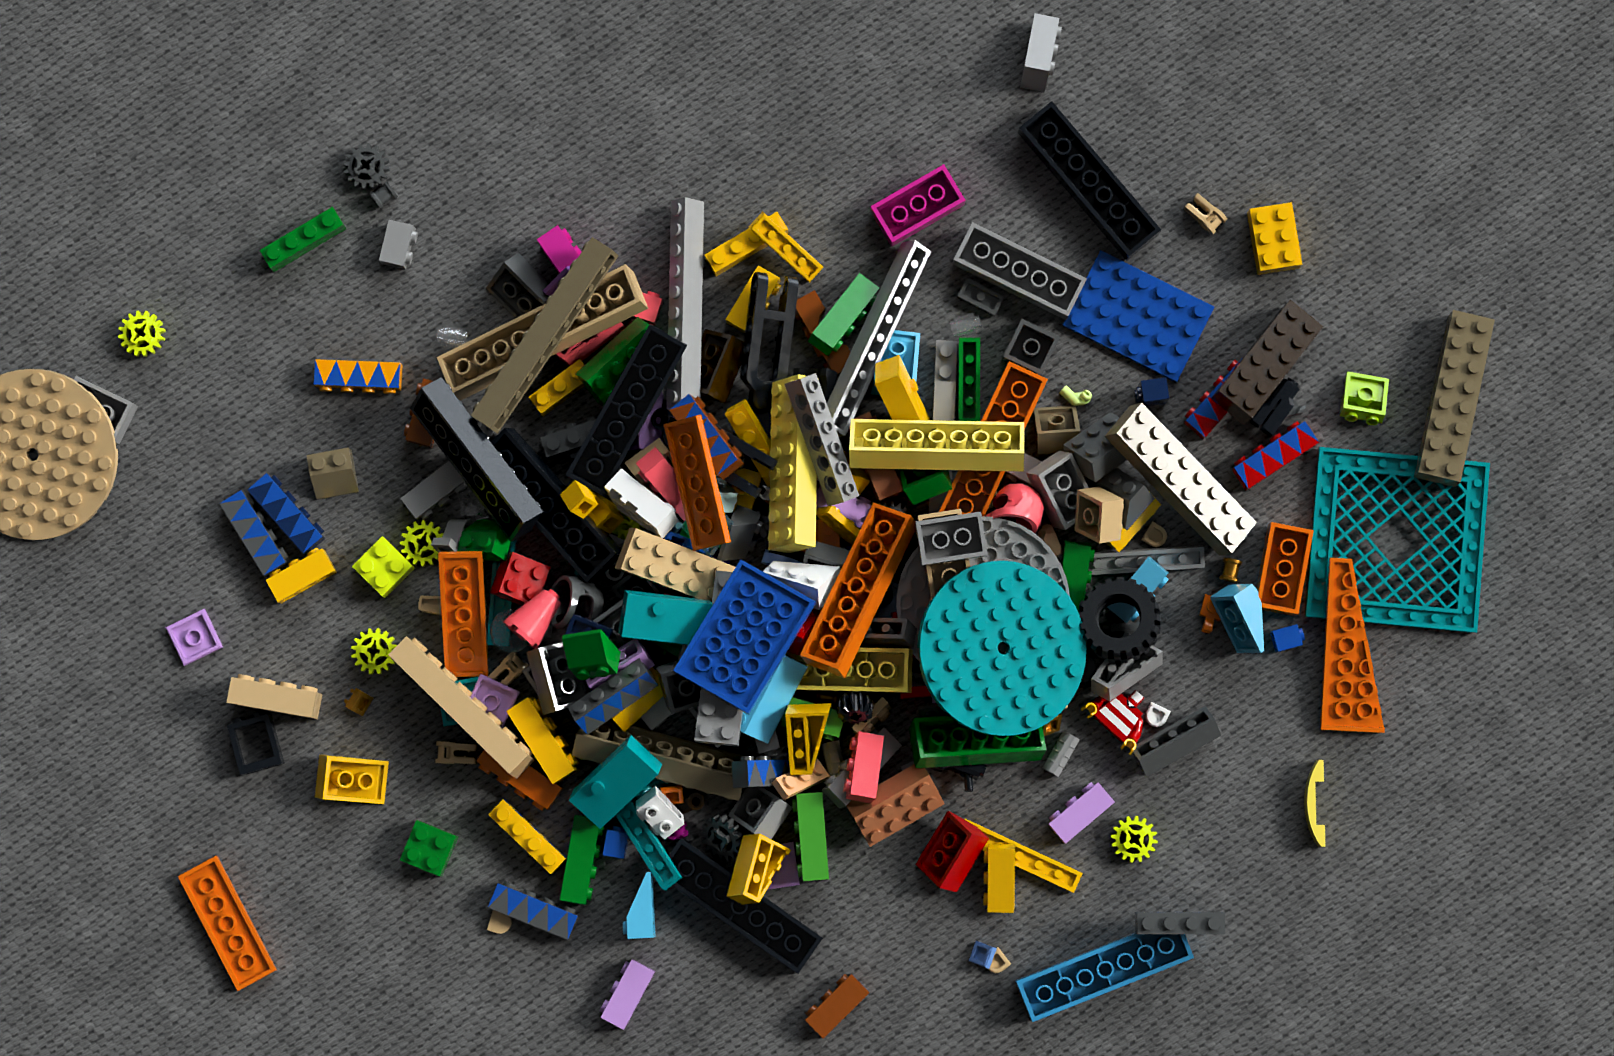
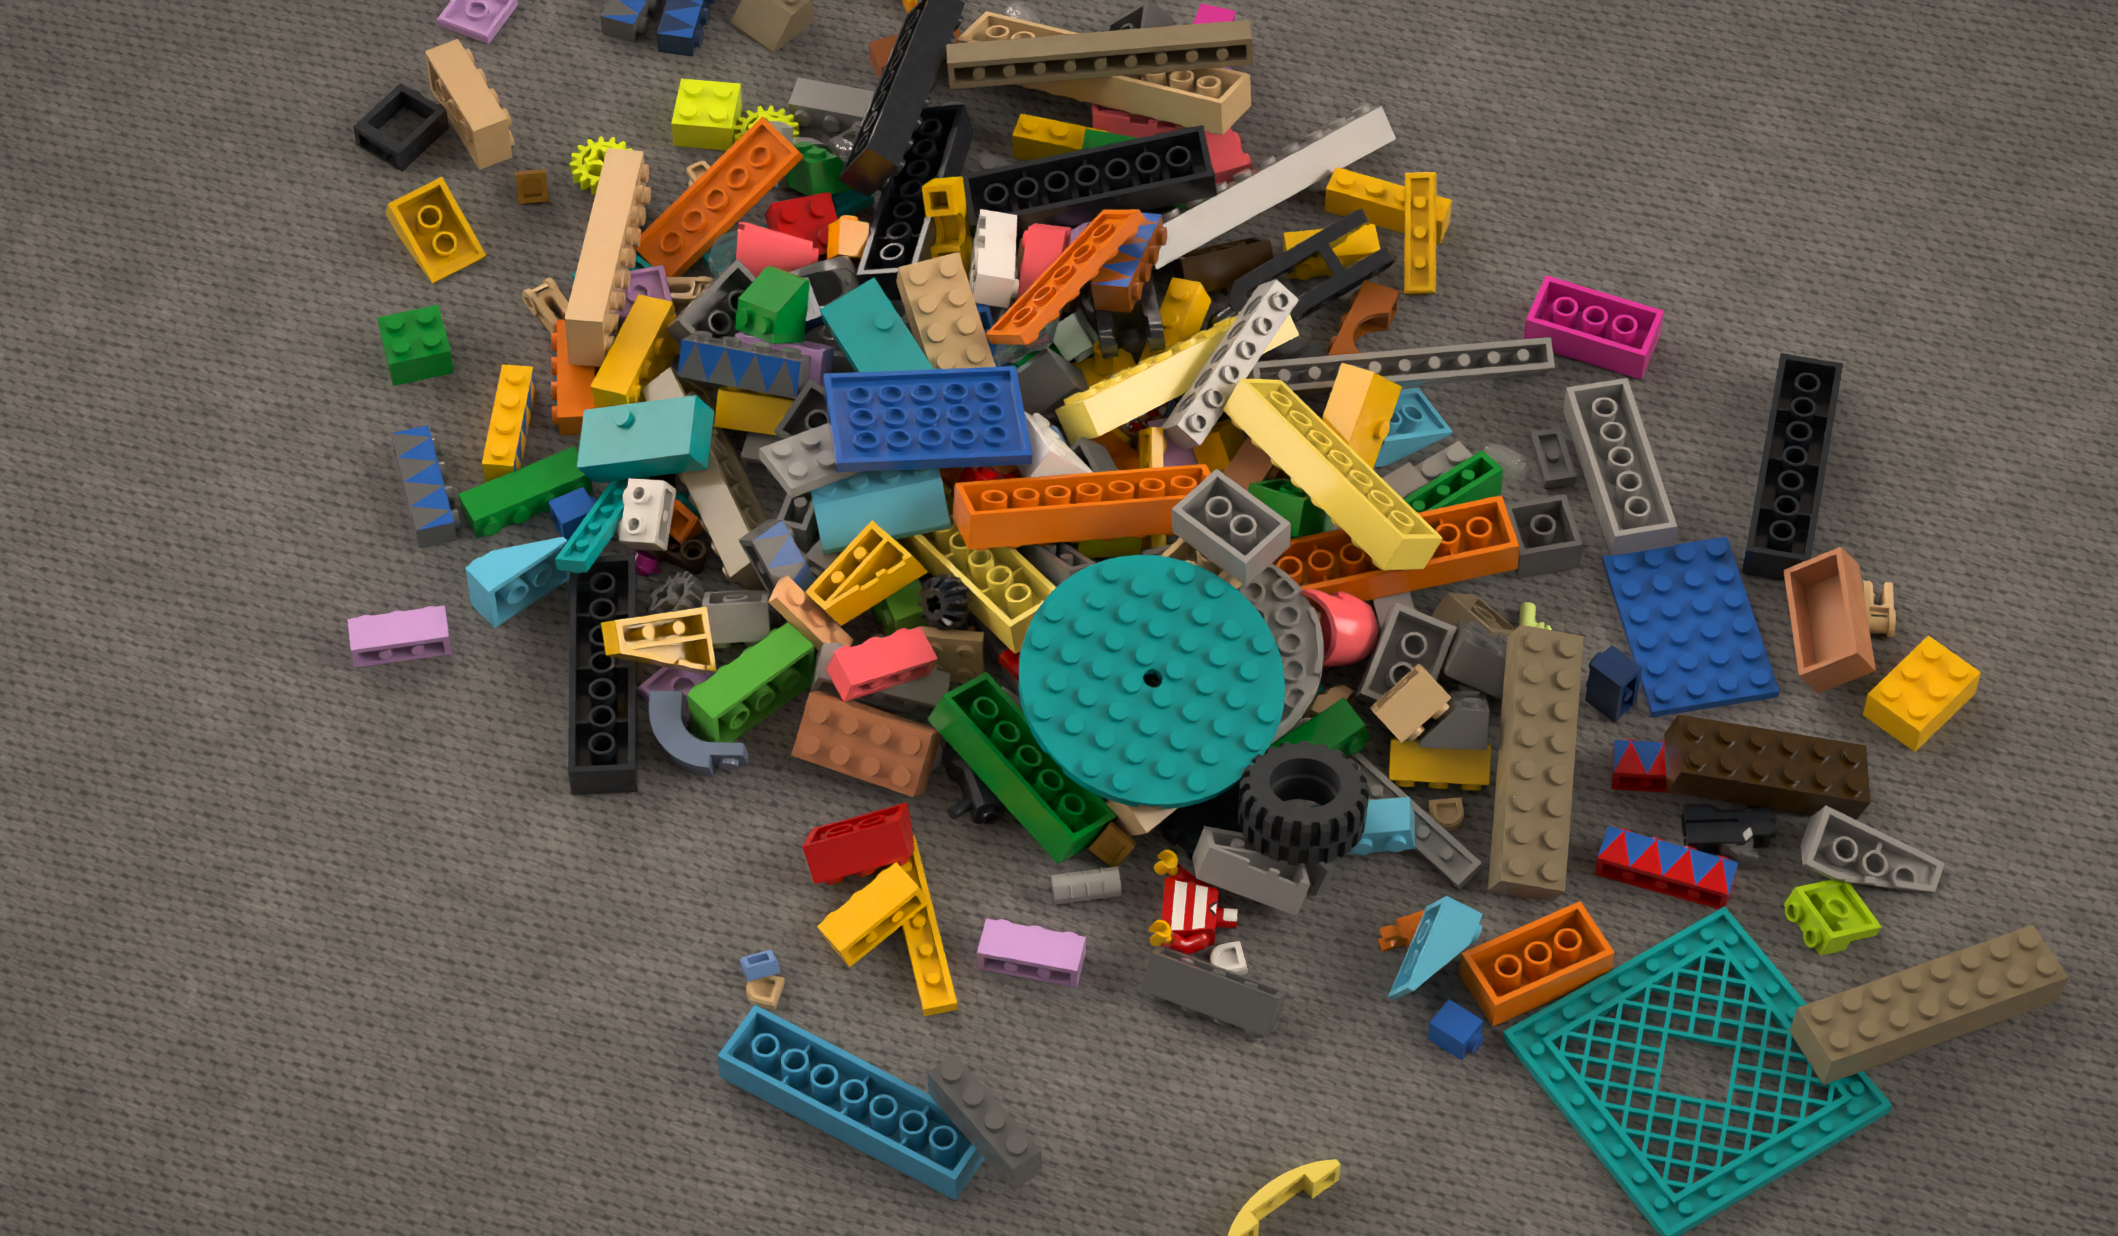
camera: 50 degrees right, 30 degrees down
(227, 923) = (169, 225): orange plate -> none
(300, 575) = (630, 54): yellow brick -> none
(499, 922) = (383, 468): tan tile -> none
(552, 565) = (847, 238): none -> light orange brick
(815, 897) = (699, 757): none -> sand blue arch
(836, 1005) = (563, 853): dark orange brick -> none
(842, 316) = (1388, 328): brick -> none
(1040, 52) = (1884, 329): wedge -> none
(1145, 830) = (1065, 1038): neon yellow gear -> none
(1200, 249) = (1829, 620): none -> nougat piece
(1230, 570) = (1491, 912): pearl gold bush -> none
(1340, 358) = (1862, 855): none -> light grey wedge
(1348, 677) = (1471, 1129): orange wing -> none

